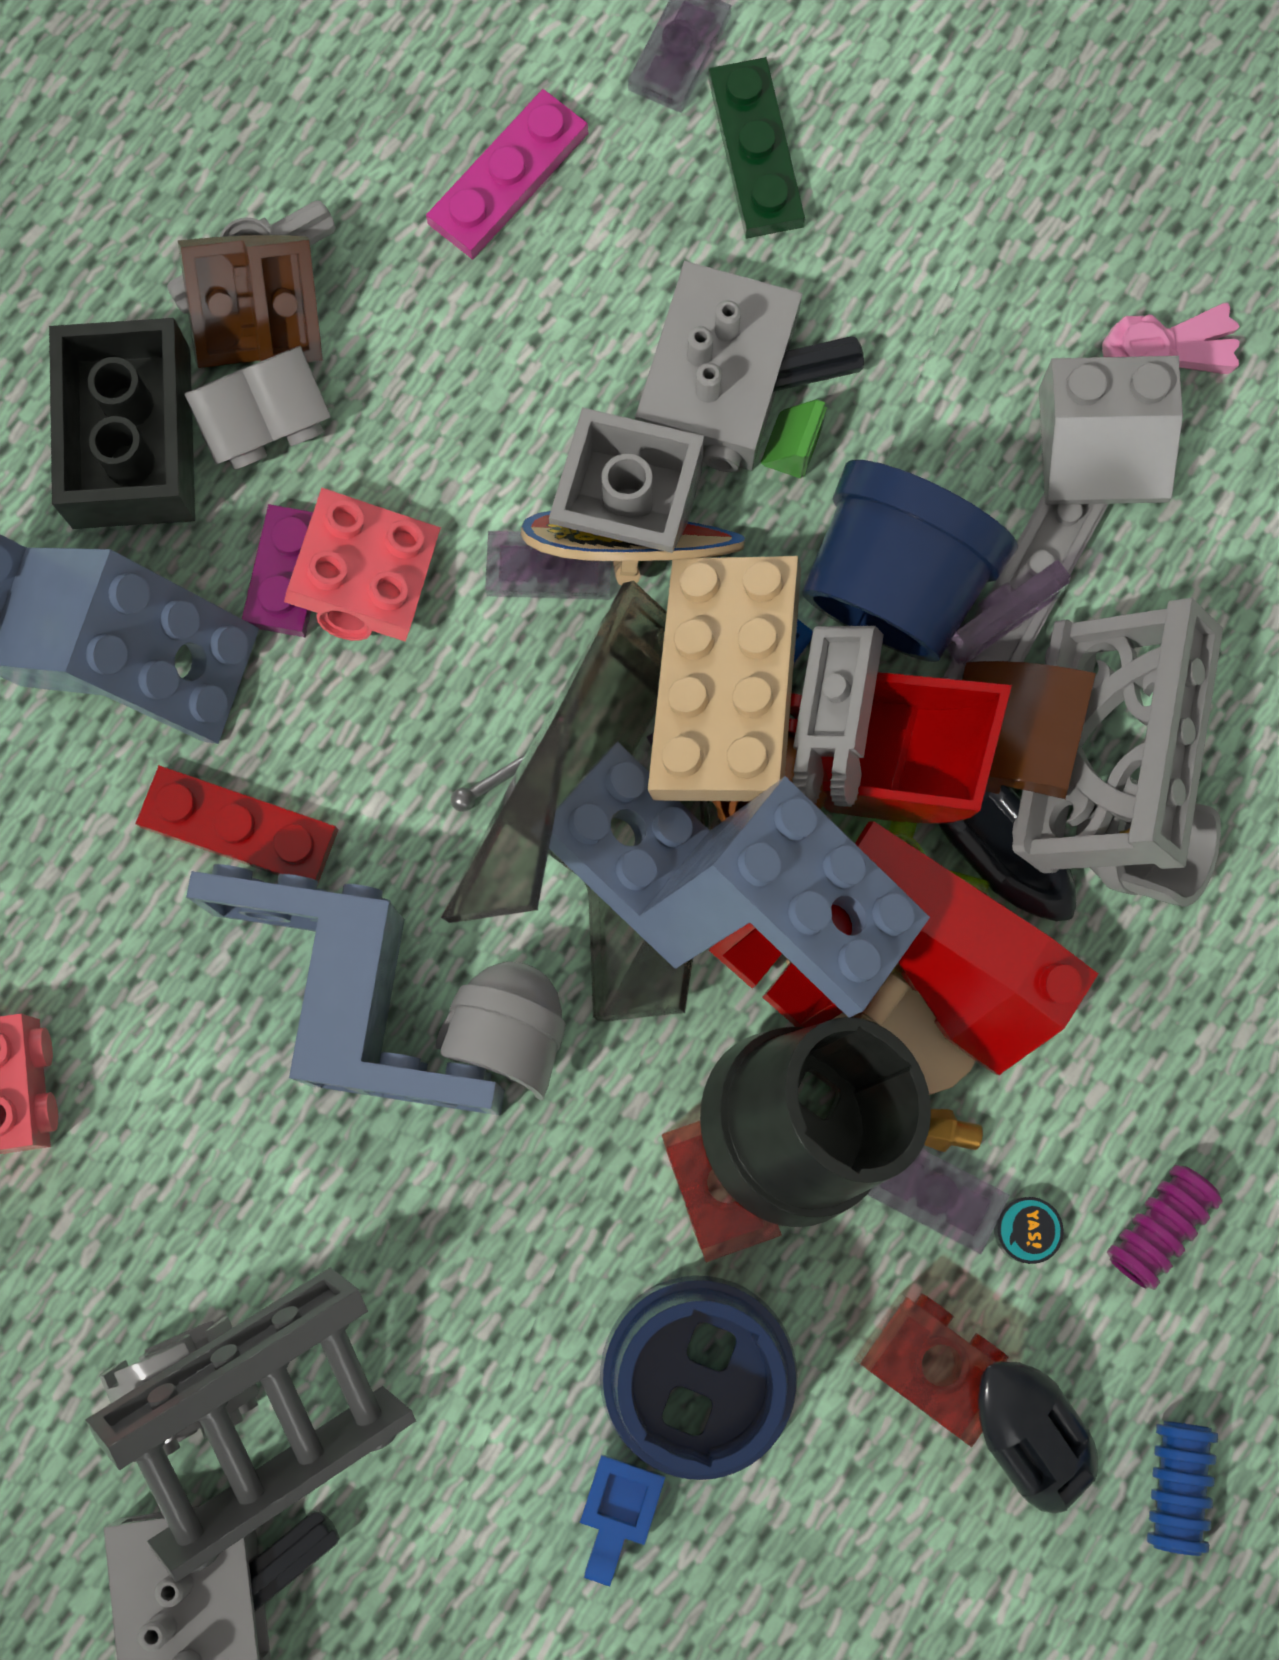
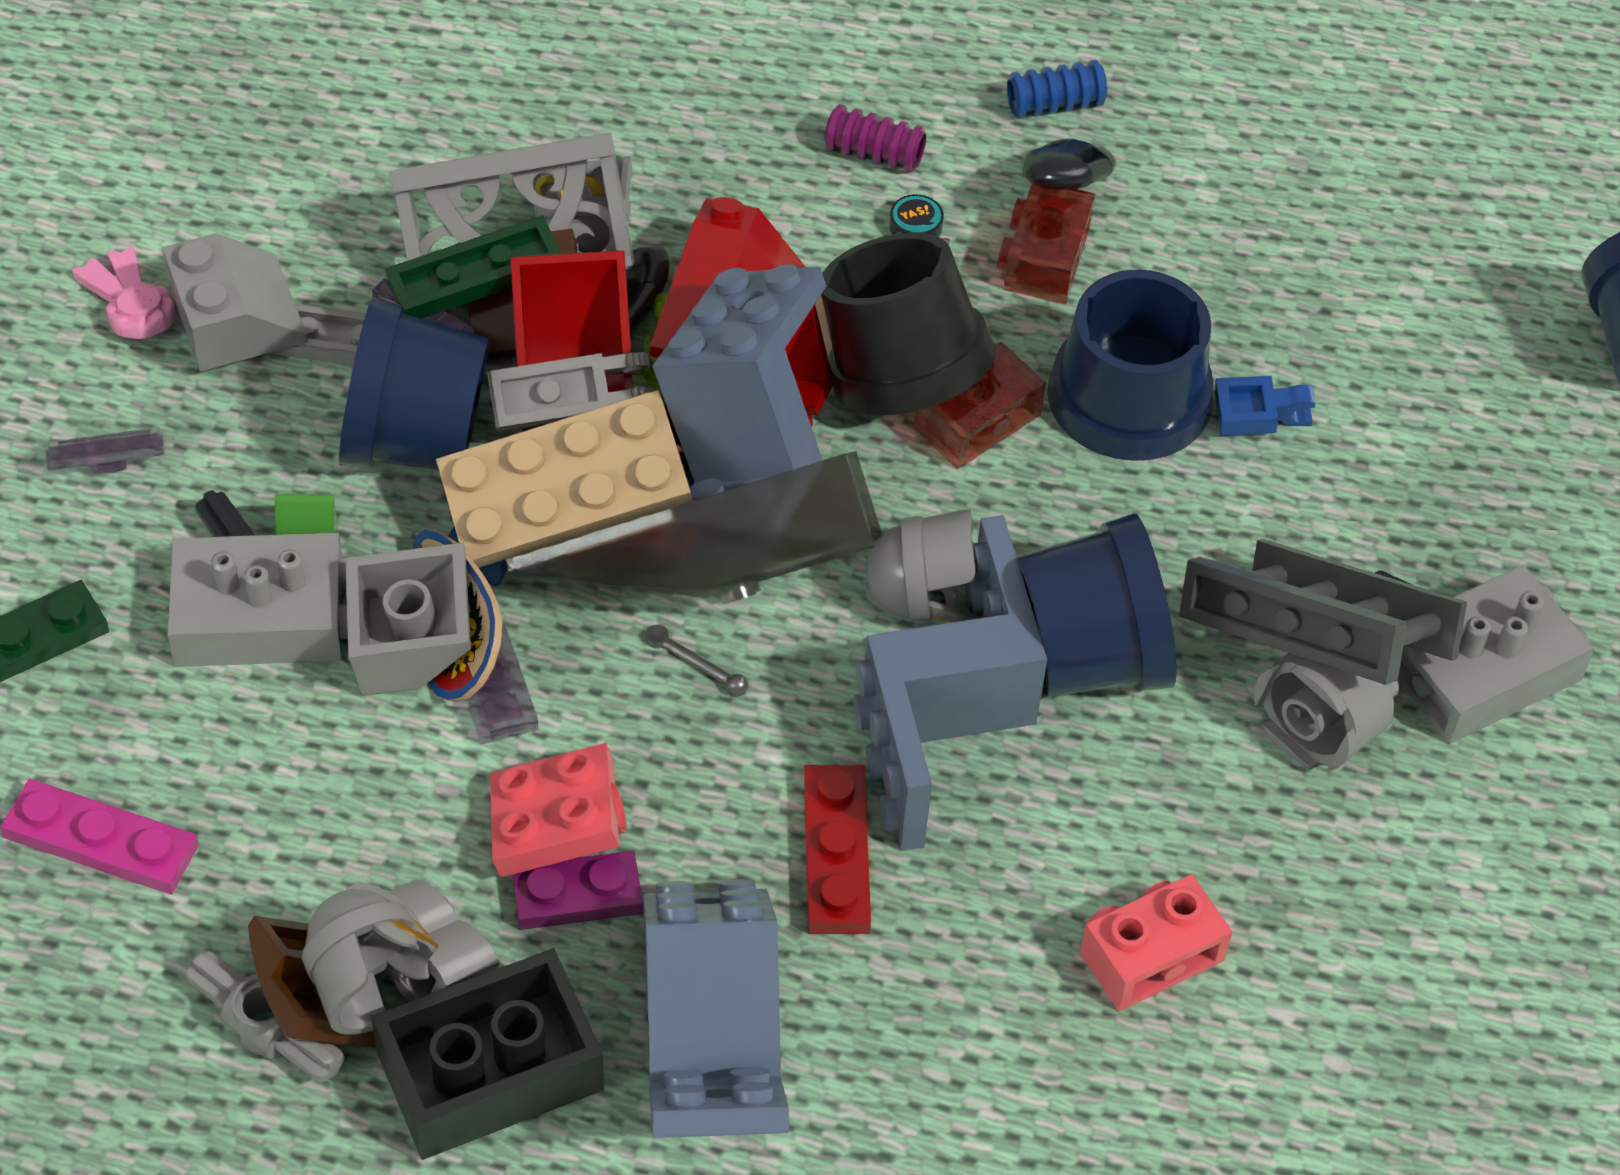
camera: 115 degrees left, 25 degrees down
(222, 306) = (355, 939): none -> light grey helmet
(359, 1171) = (1102, 611): none -> dark blue piece
(959, 273) = (107, 451): none -> clear purple plate
(1034, 661) = (467, 268): none -> dark green plate

